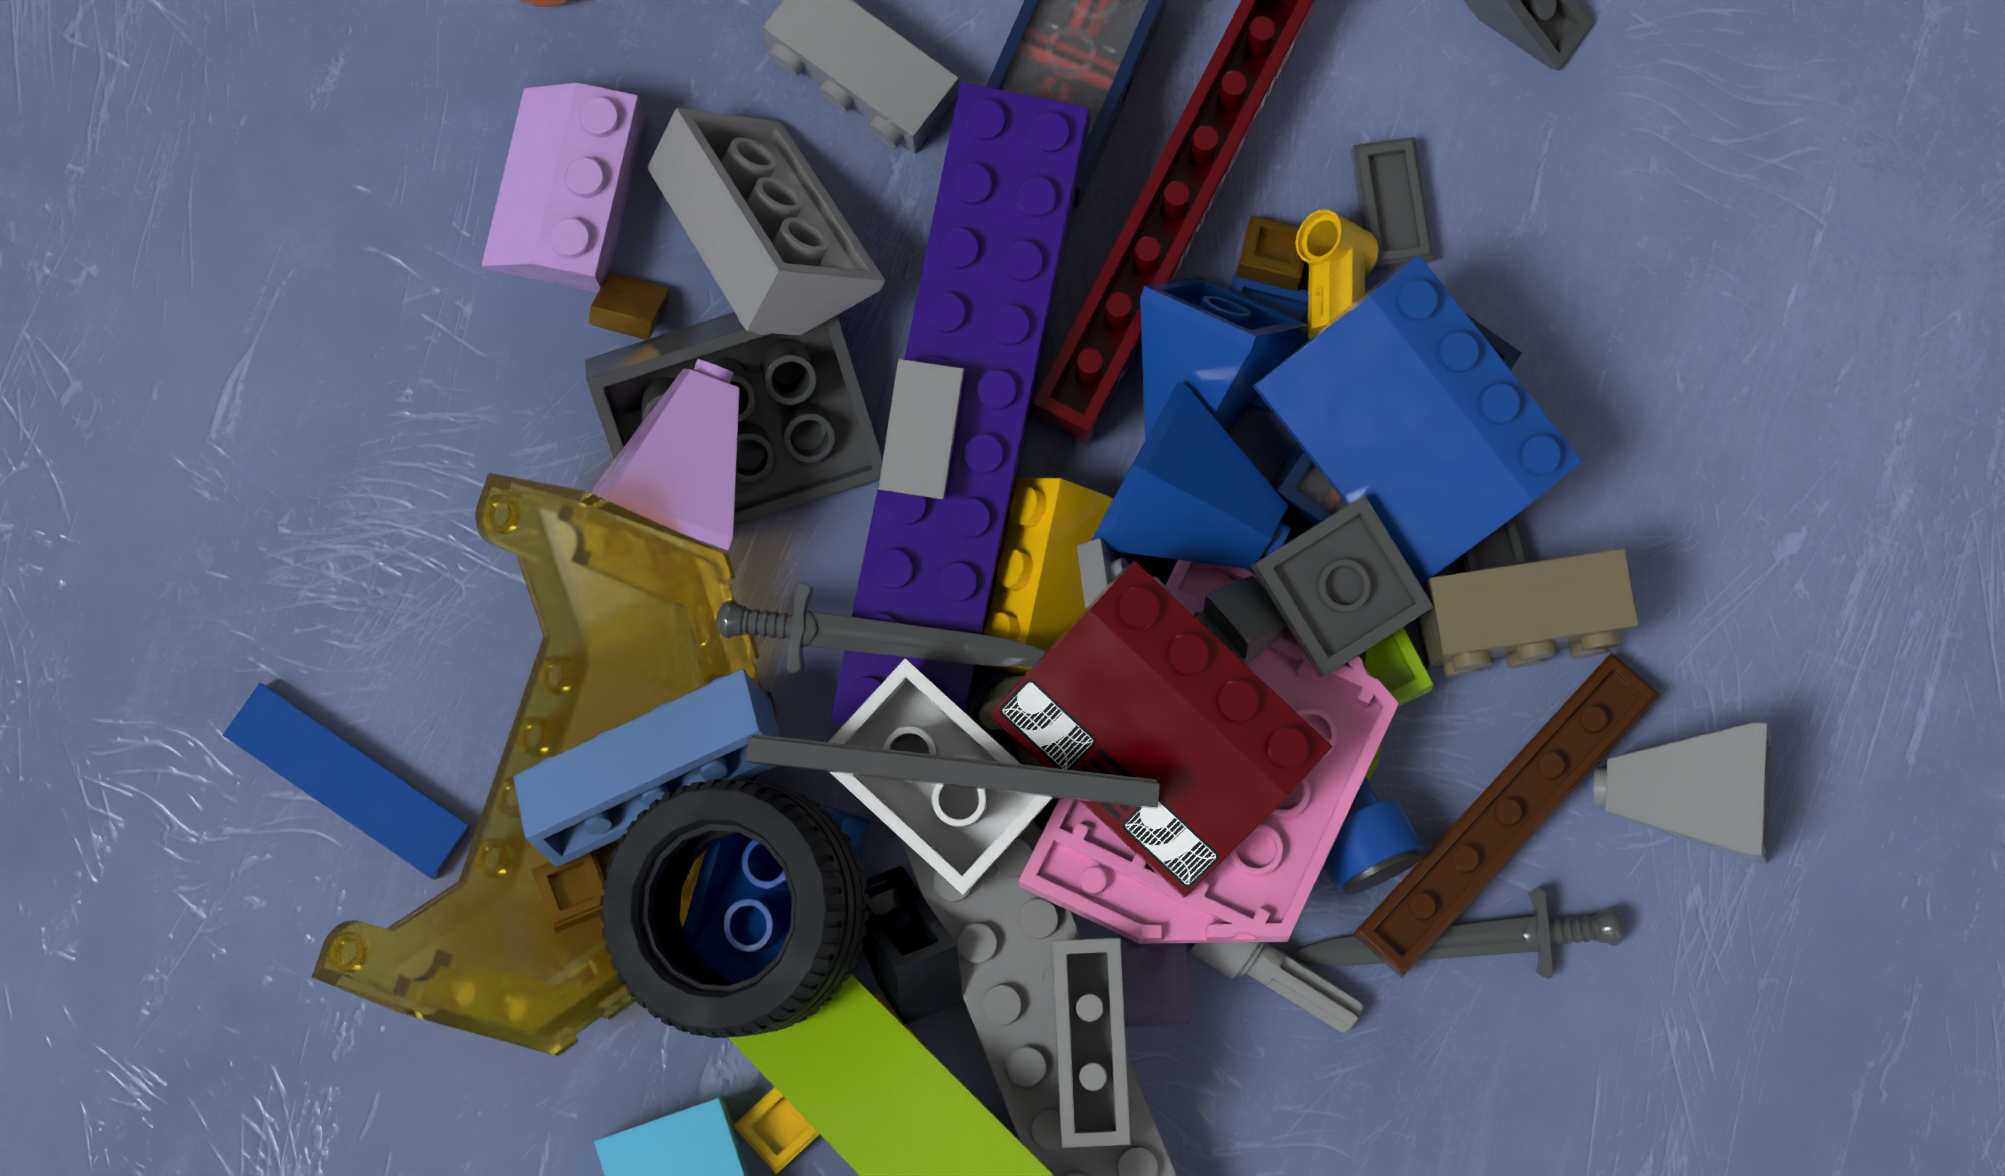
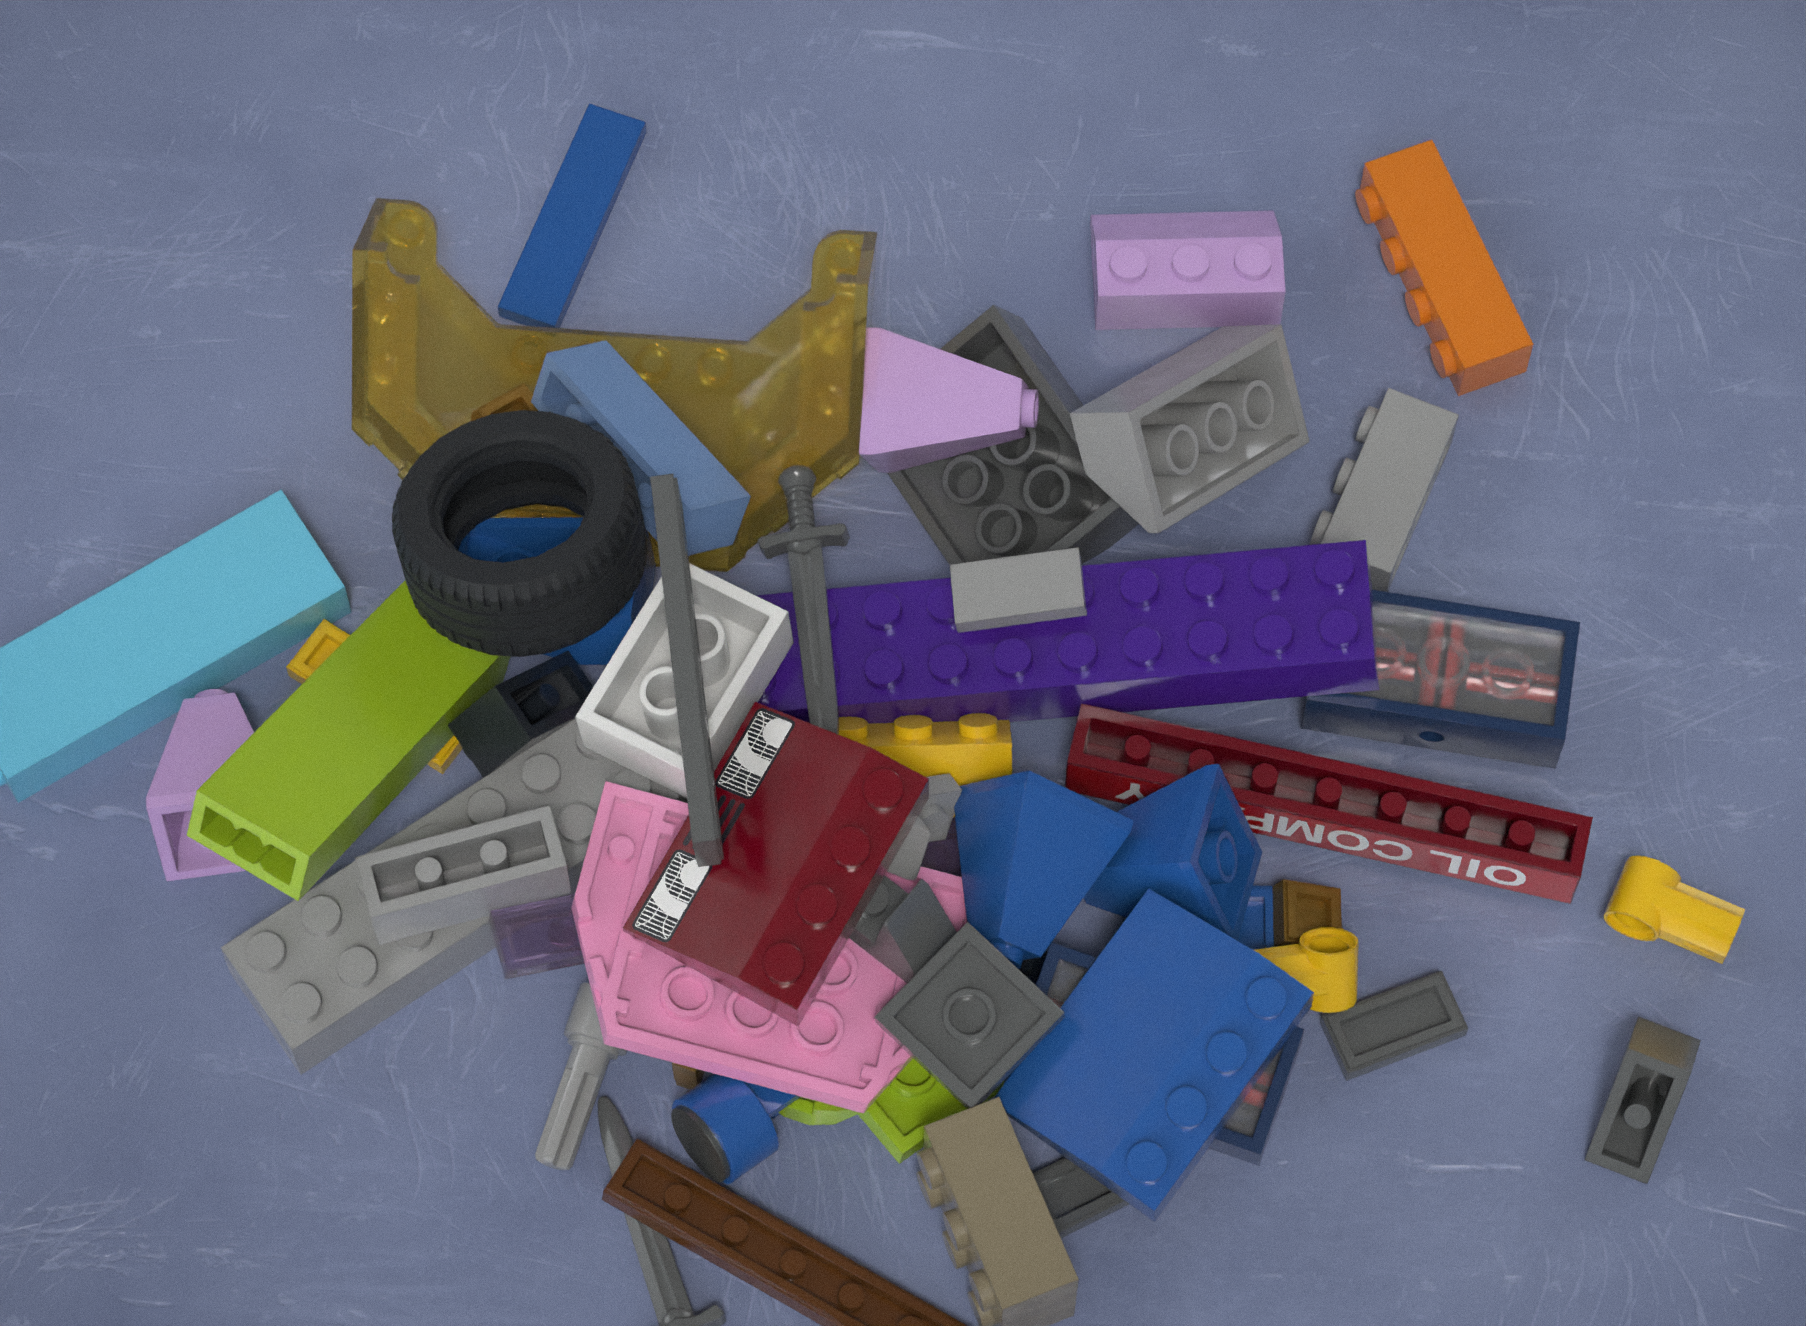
camera: 75 degrees right, 15 degrees down
(628, 306) = (1085, 345): pearl gold tile -> none

